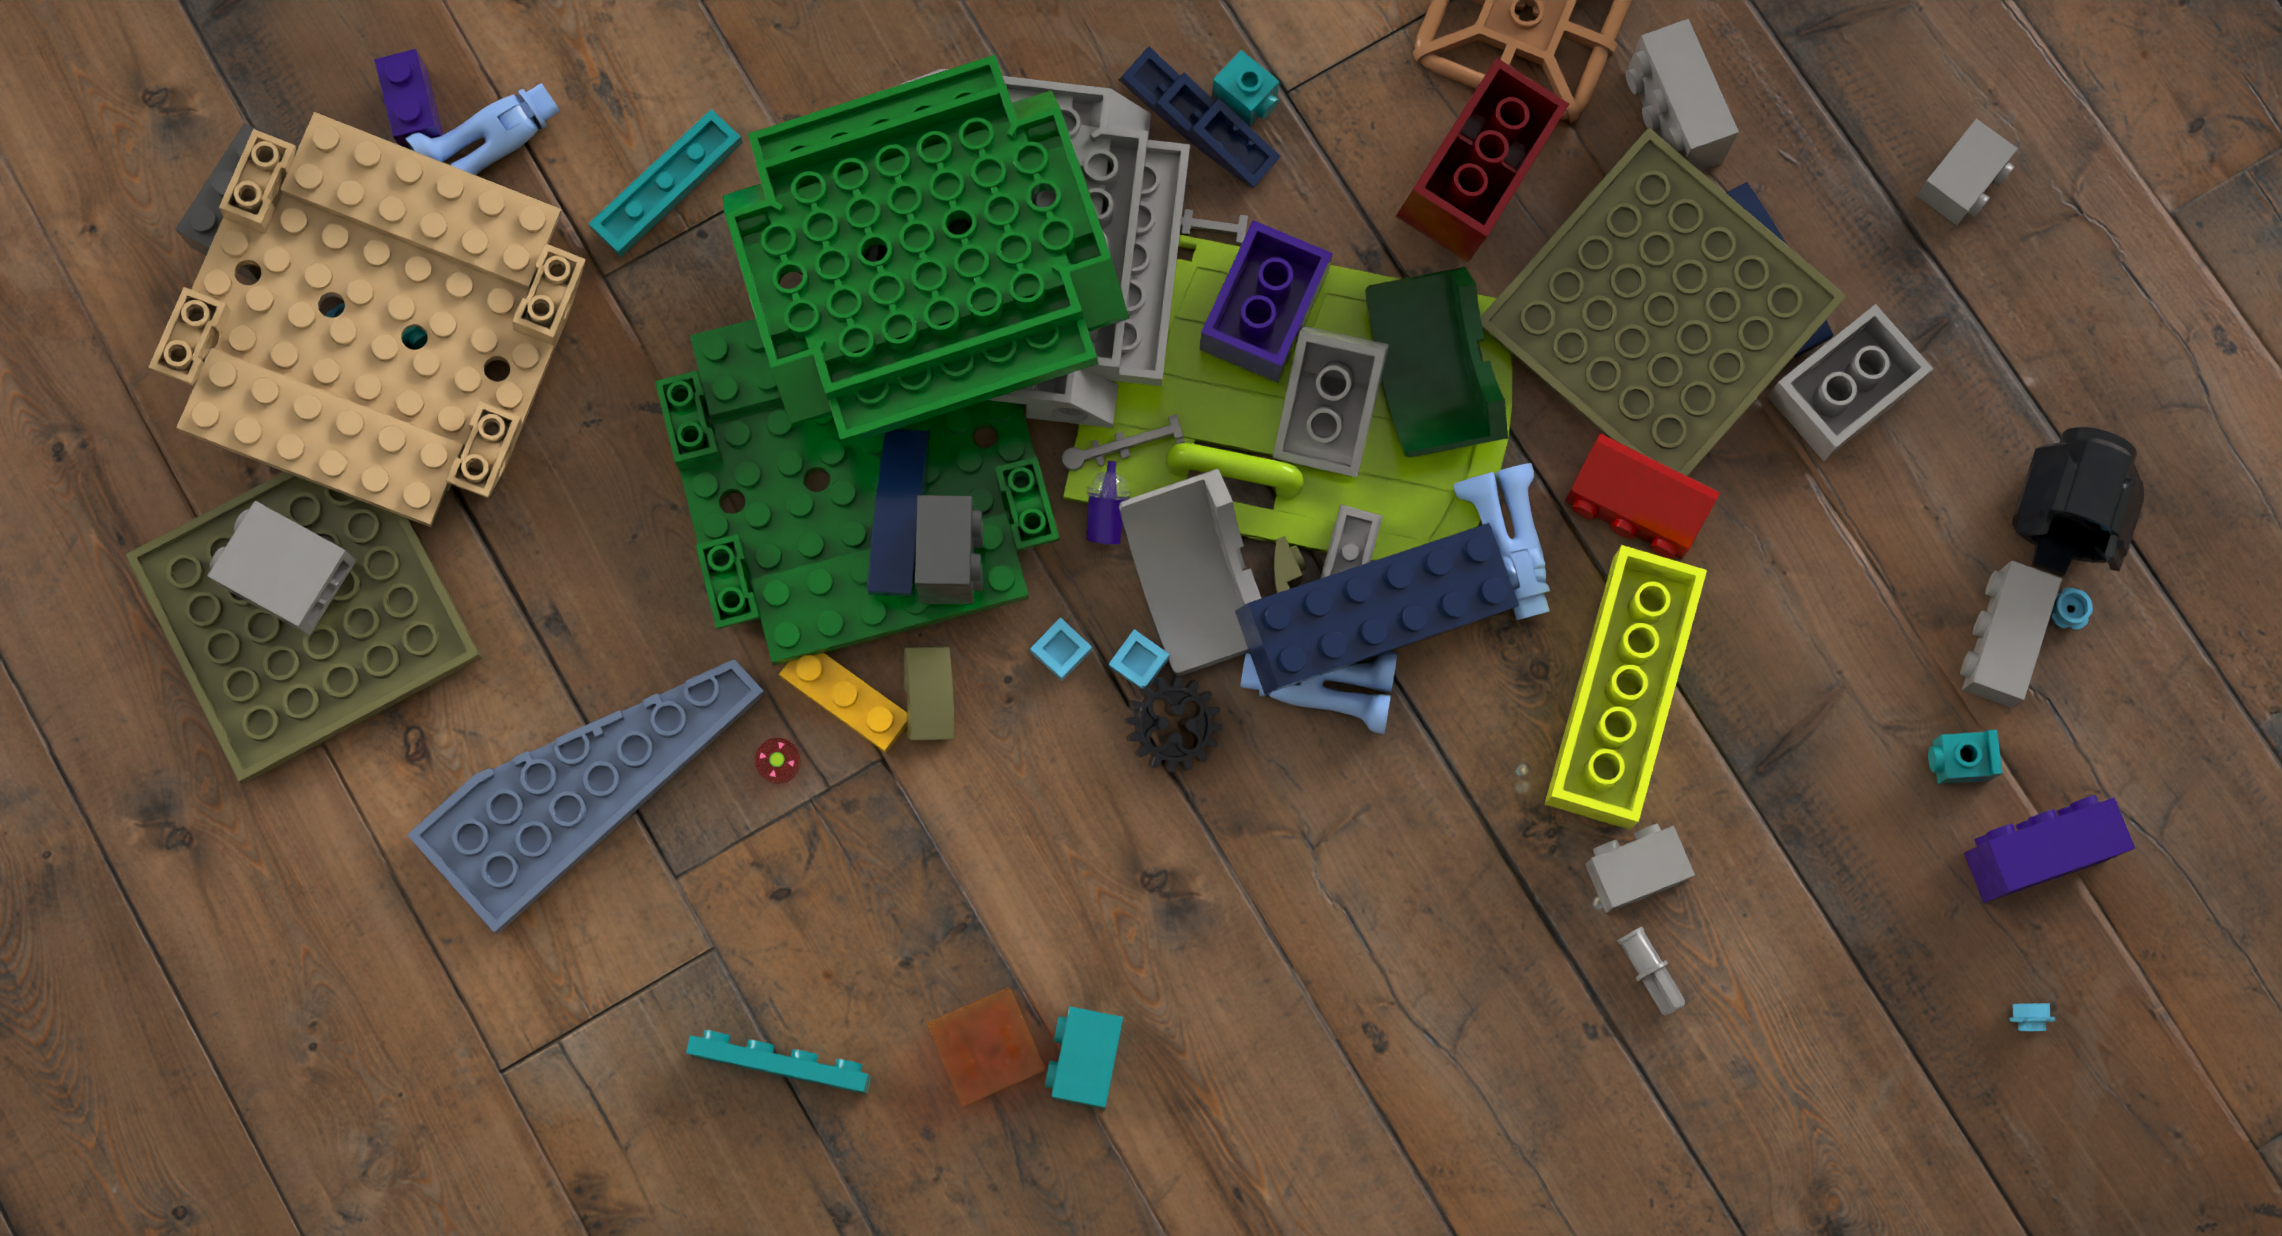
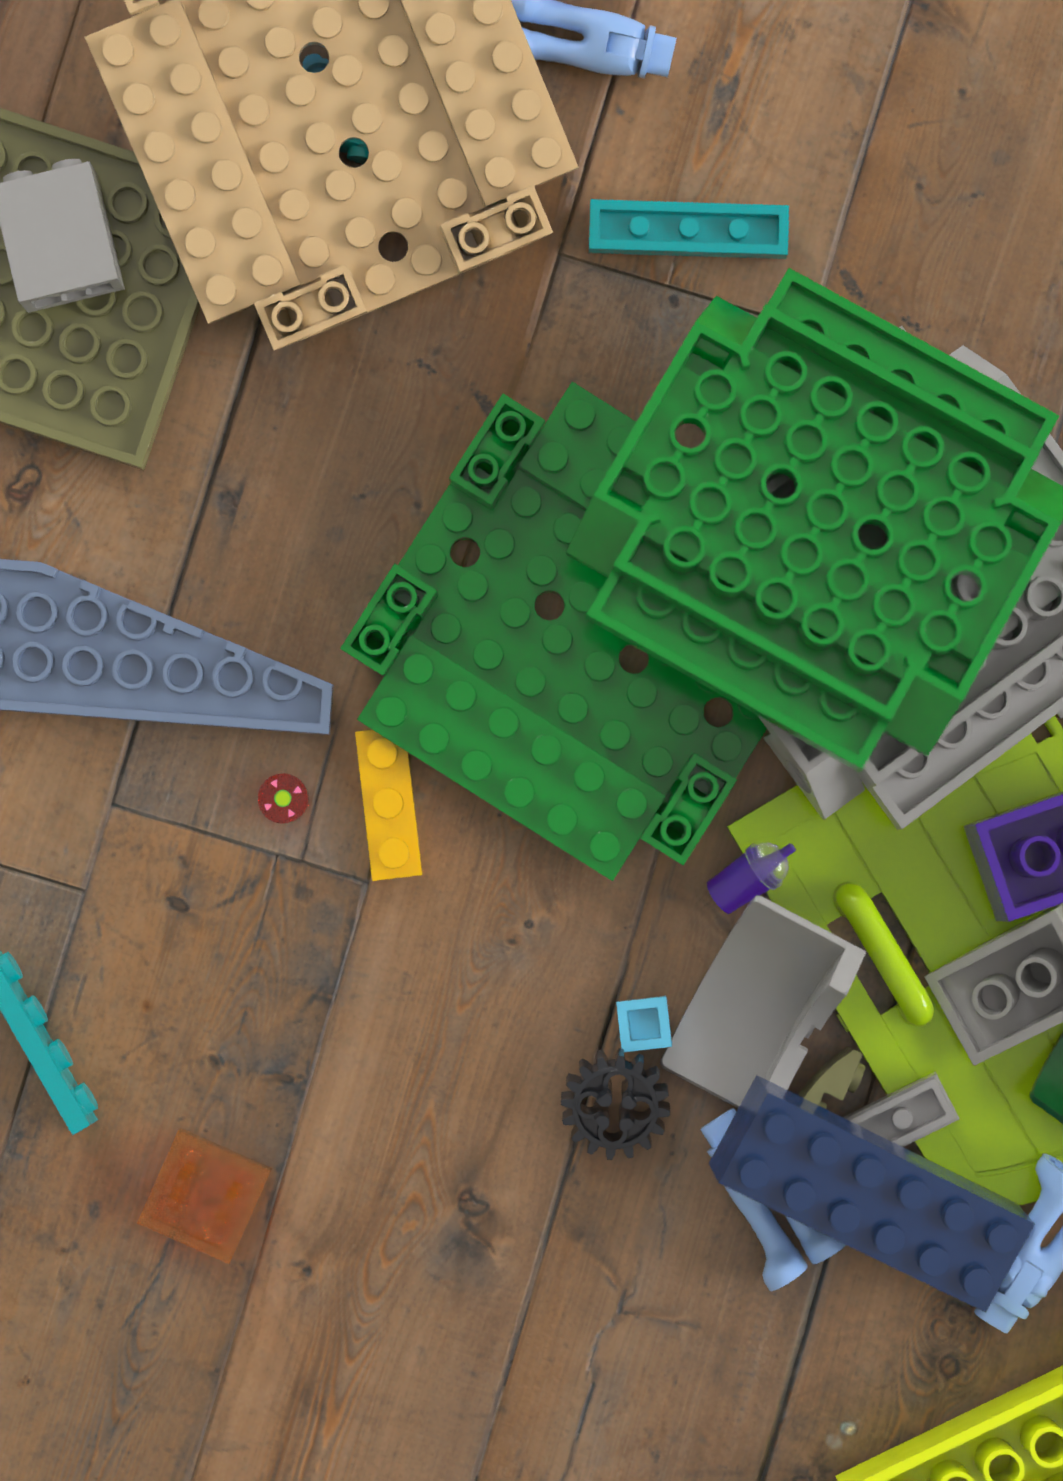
camera: 45 degrees right, 10 degrees up
(895, 514) = (575, 713): dark blue slope -> none
(929, 693) = (454, 873): olive slope -> none
(945, 549) = (580, 787): dark grey brick -> none
(1061, 649) = (593, 949): medium azure plate -> none
(1074, 458) = (769, 806): light grey piece -> none
(1085, 1057) = (270, 1288): teal brick -> none

